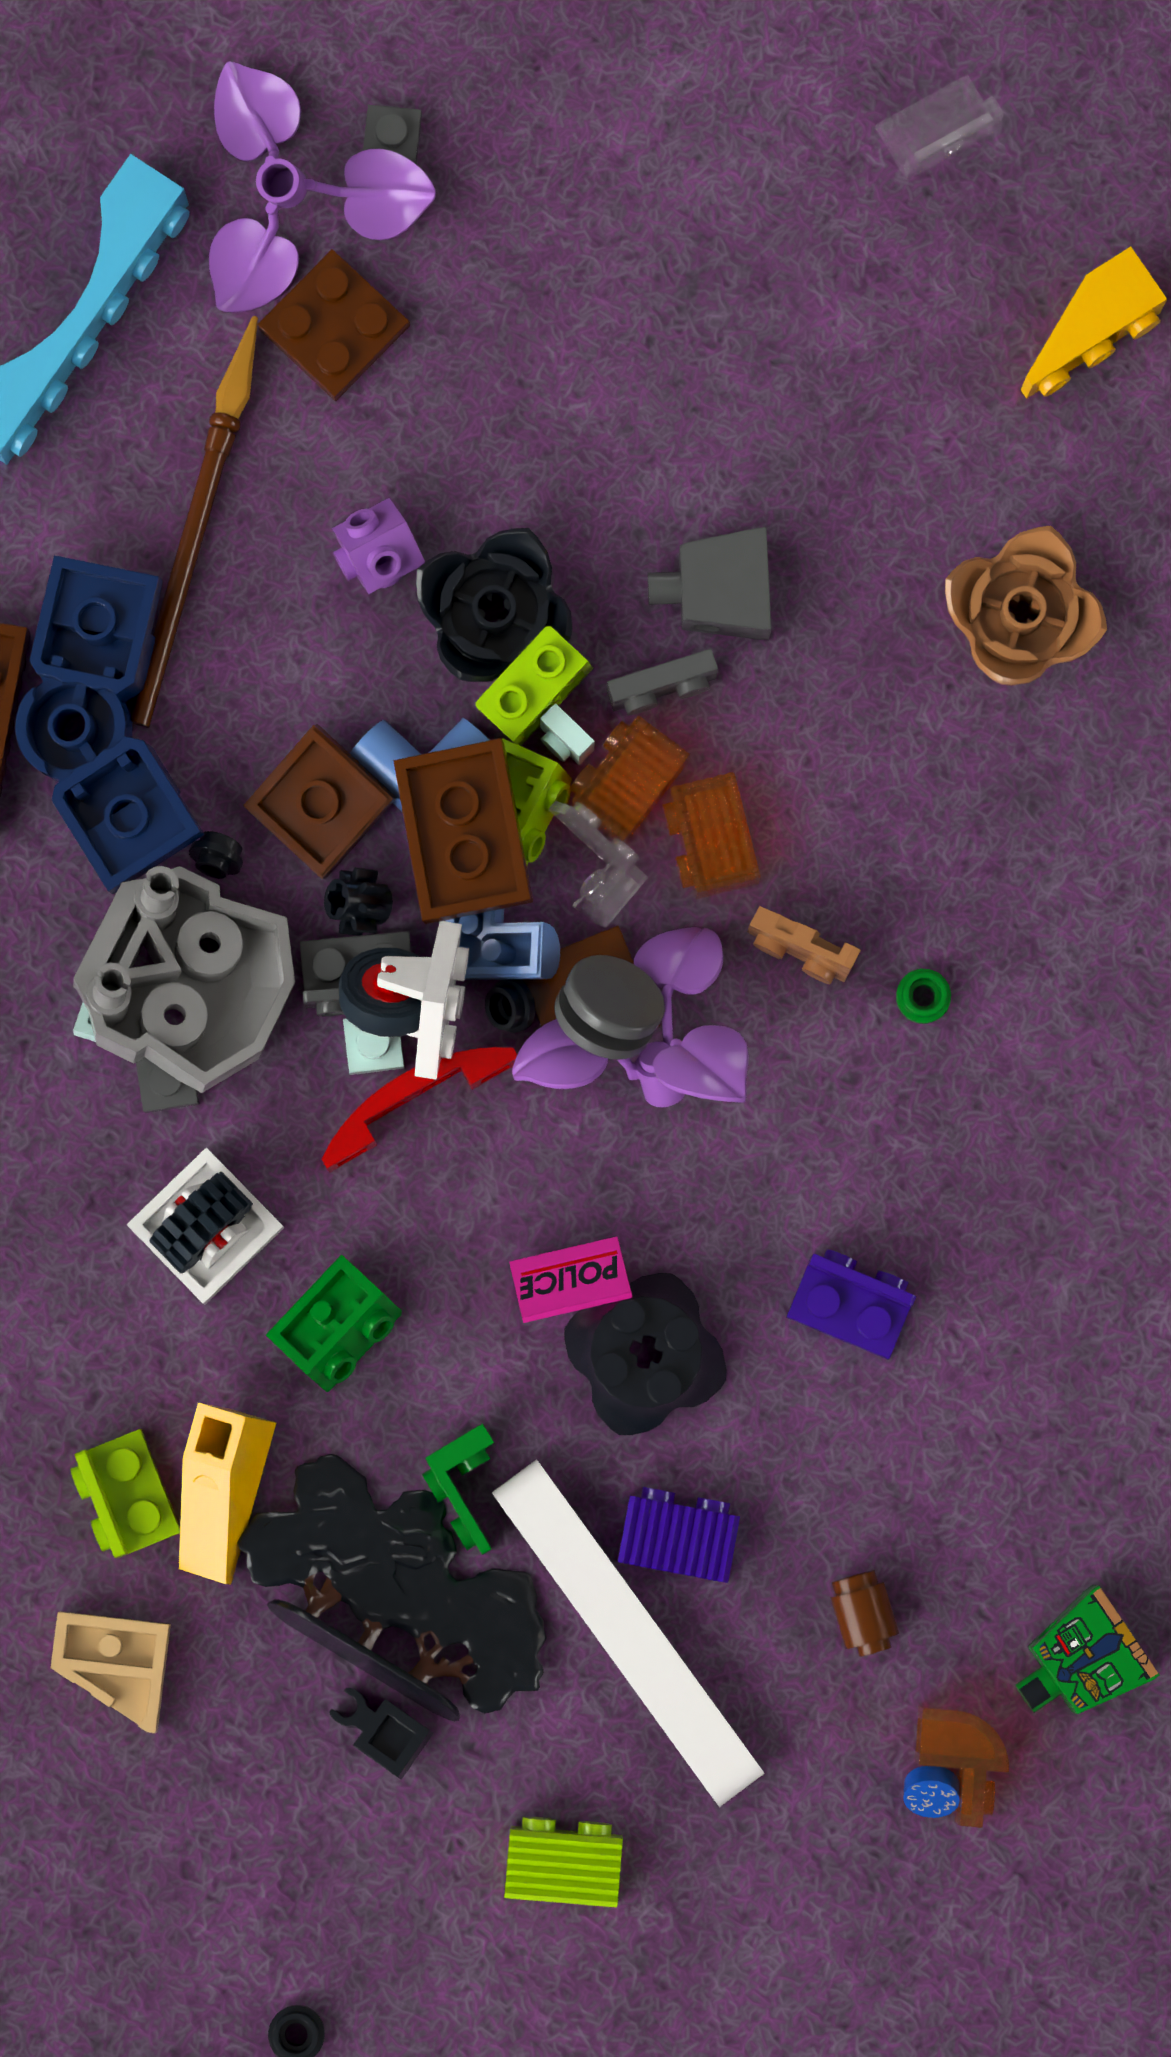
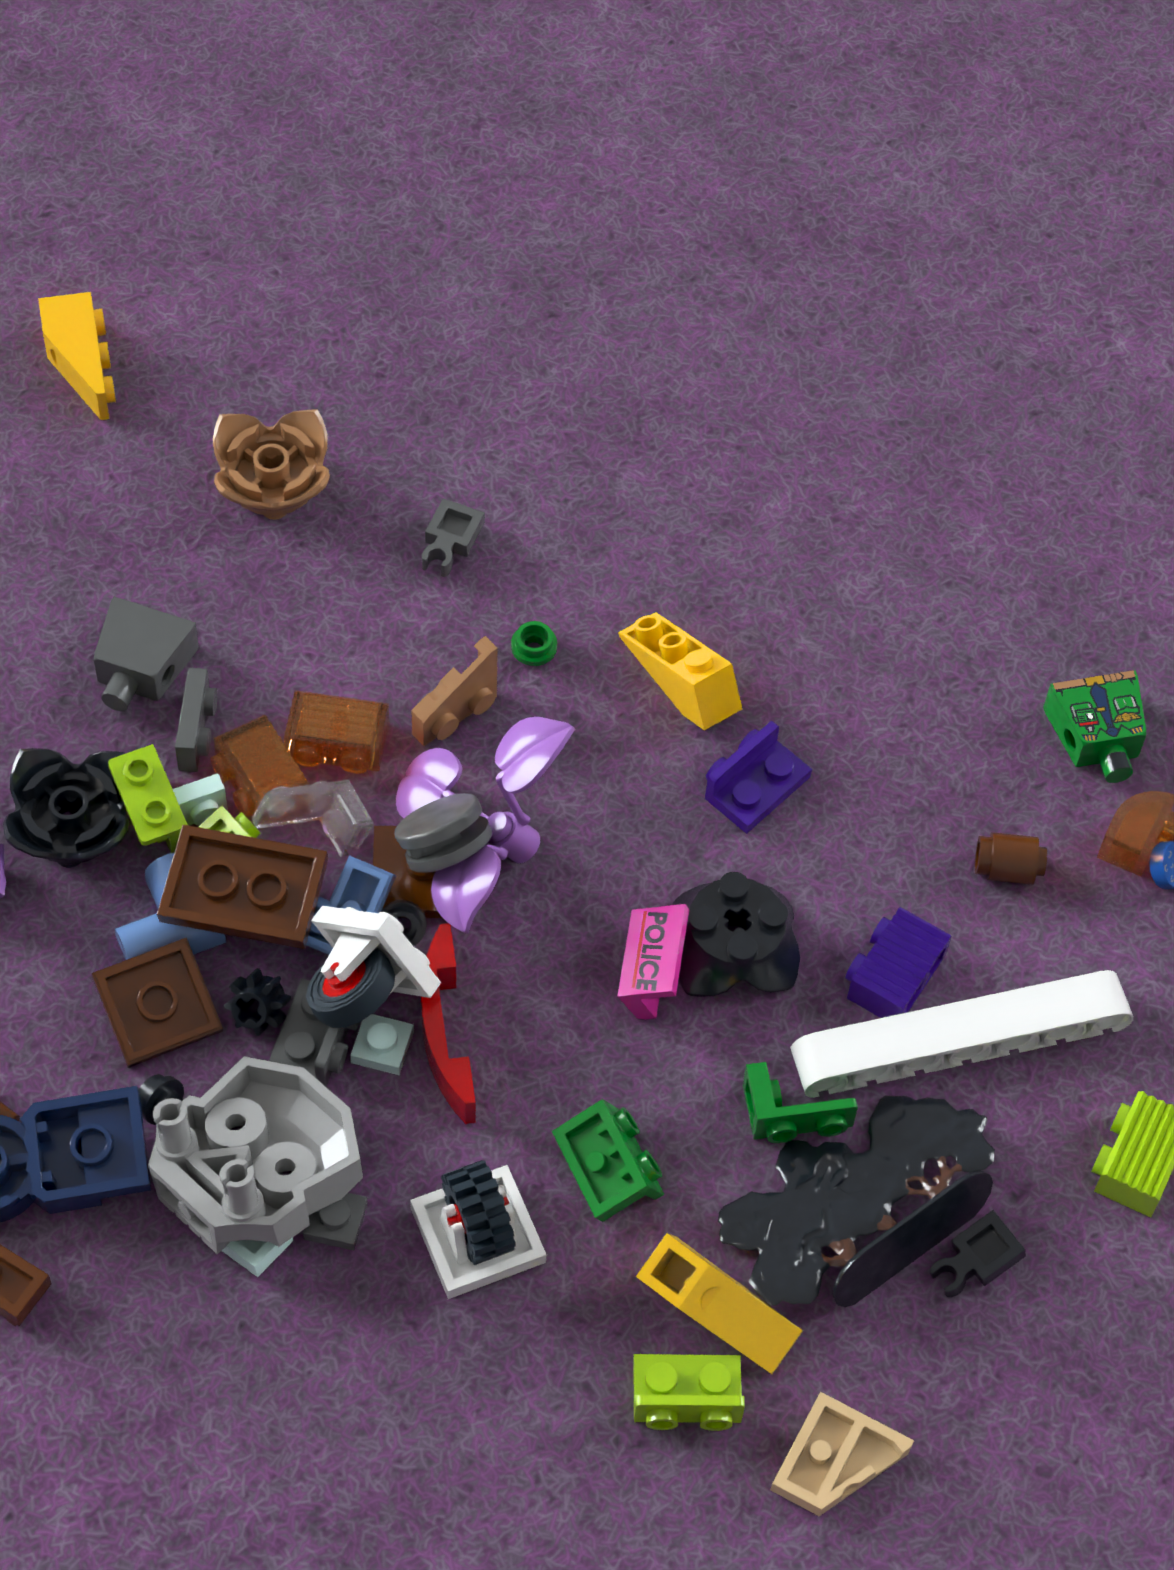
camera: 70 degrees left, 25 degrees down
(958, 1168) = (685, 669): none -> yellow slope
(1032, 845) = (450, 532): none -> dark grey plate

